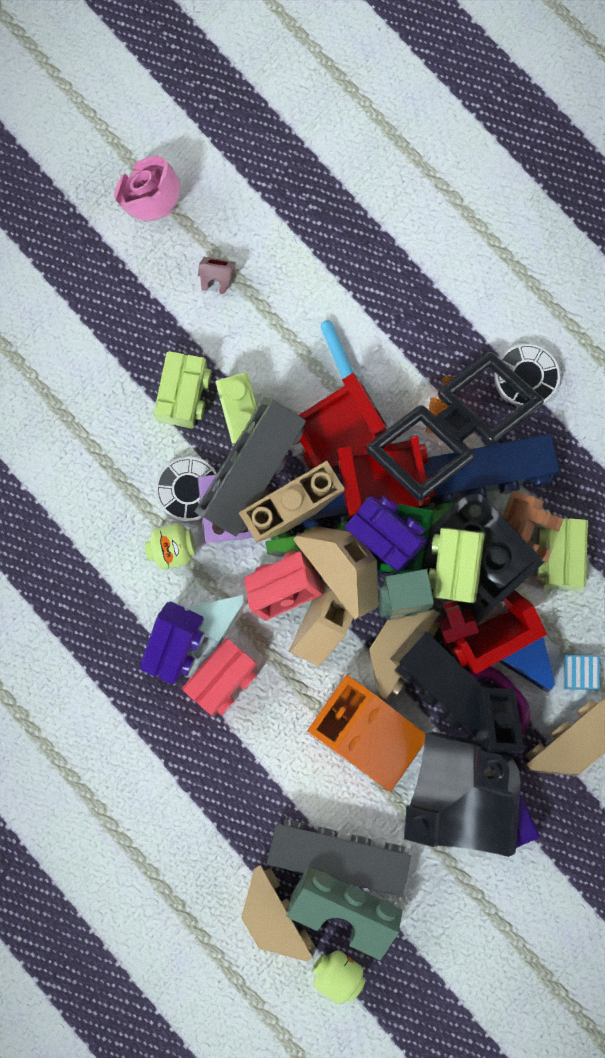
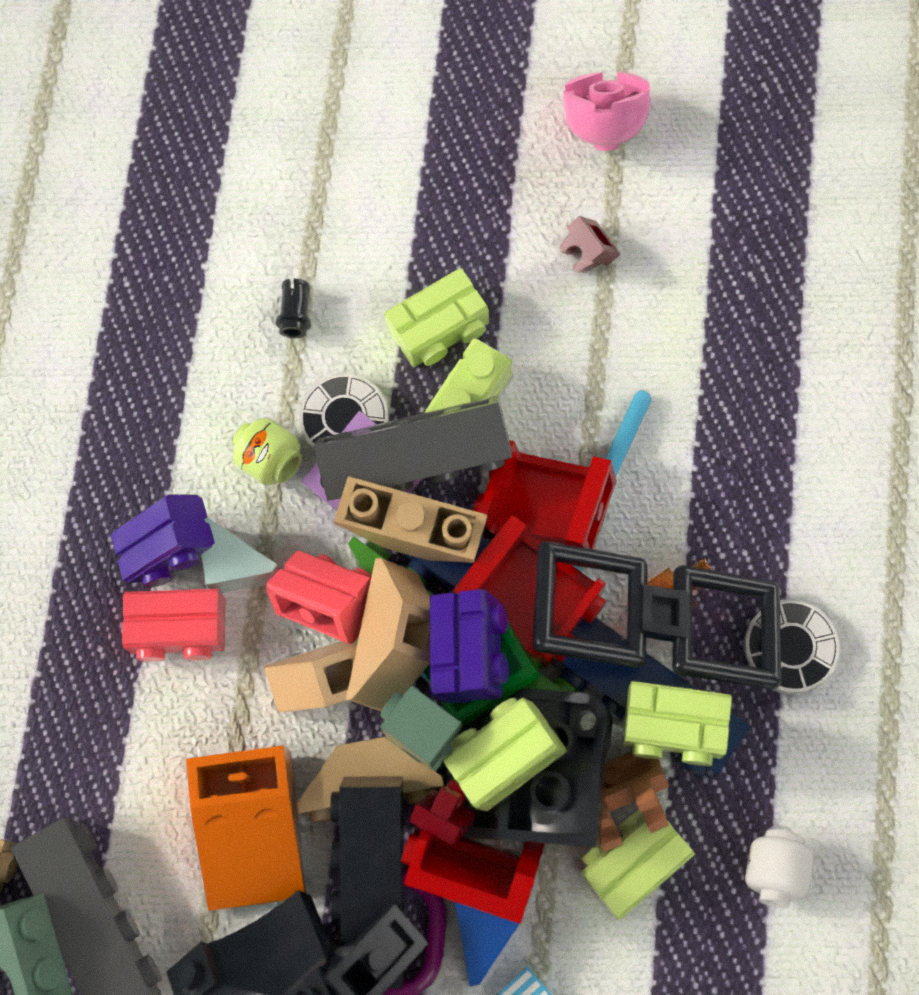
camera: 50 degrees right, 5 degrees down
(100, 461) = (294, 306): none -> black pin
(517, 466) = (676, 722): none -> yellowish green brick

